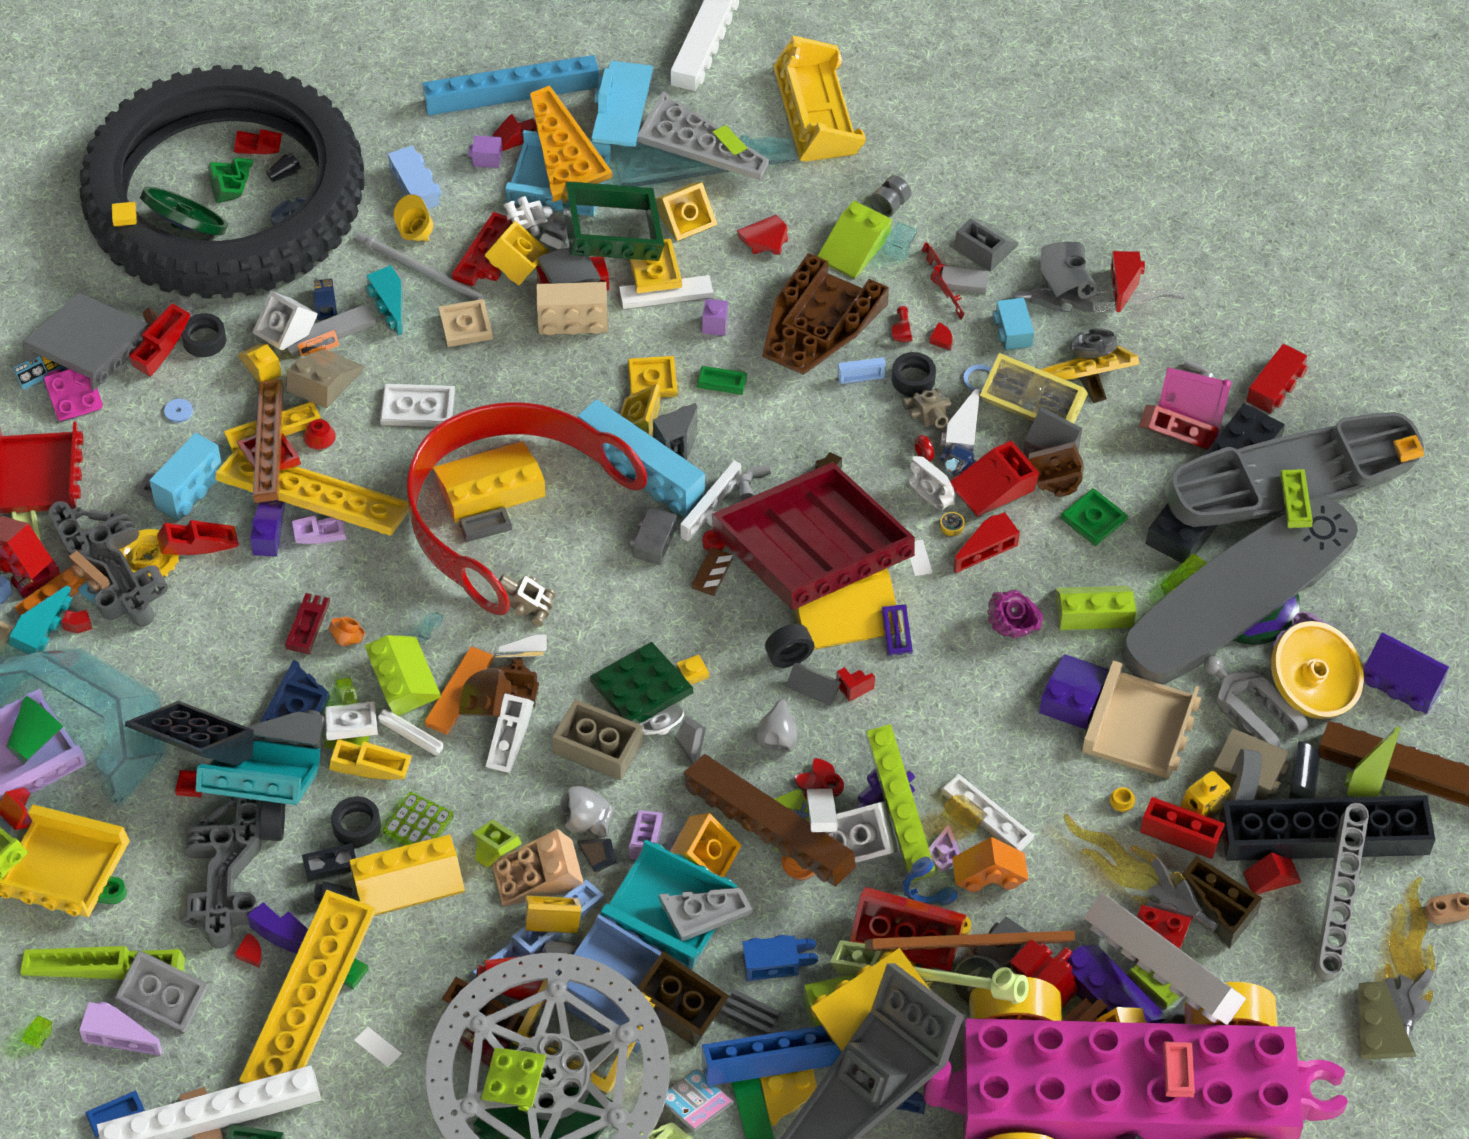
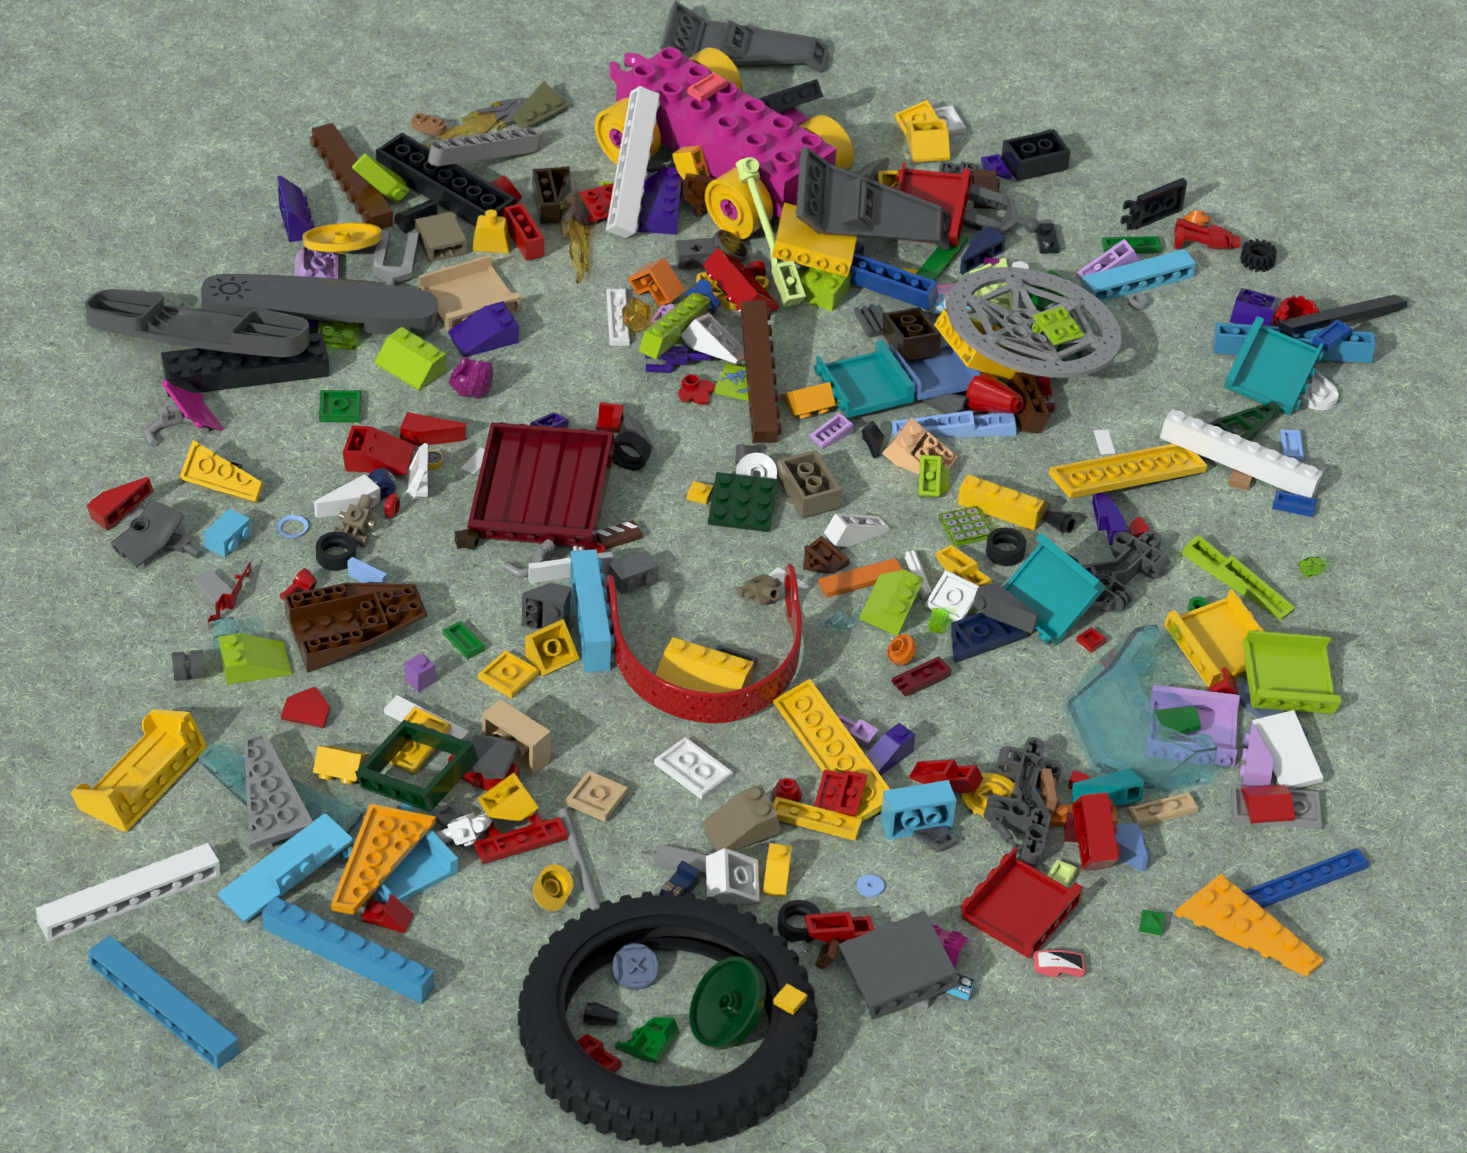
camera: 140 degrees left, 10 degrees down
(112, 1028) = (1262, 537): lavender slope -> none
(162, 991) = (1215, 534): light grey tile -> none
(197, 732) = (1078, 626): black slope -> none
(268, 441) = (838, 786): dark orange tile -> none
(328, 861) = (1033, 530): black piece -> none
(386, 289) = (629, 851): teal slope -> none
(413, 177) = (510, 928): light blue brick -> none
(484, 693) = (854, 546): reddish brown slope -> none
(486, 151) = (431, 911): medium lavender brick -> none
(519, 654) = (802, 570): yellow sticker -> none
(552, 914) = (939, 413): yellow slope -> none
(554, 242) = (470, 790): light grey tile -> none
(585, 810) = (860, 458): light grey piece -> none
(700, 913) = (849, 360): light grey wing -> none
(730, 140) = (251, 770): lime sticker -> none
(776, 956) = (828, 328): blue hinge -> none
(778, 729) = (692, 418): light grey piece -> none
(821, 810) = (726, 346): white tile -> none
(942, 337) = (281, 564): red tile -> none
(975, 940) = (723, 239): dark orange tile -> none
(983, 243) = (169, 590): dark grey slope -> none
(1027, 389) = (284, 475): clear brick -> none
(1036, 962) = (694, 215): red brick -> none
(1050, 431) = (313, 446): dark grey slope -> none
(1058, 469) = (336, 431): reddish brown slope -> none
(1094, 344) = (195, 485): dark grey tile -> none
(1122, 799) = (533, 272): yellow plate -> none
(1177, 426) = (222, 408): red slope -> none
(1248, 771) = (464, 216): dark grey slope -> none
(1277, 379) = (115, 391): red brick -> none
(1296, 498) = (224, 305): lime tile -> none
(1408, 448) = (110, 292): light orange tile -> none

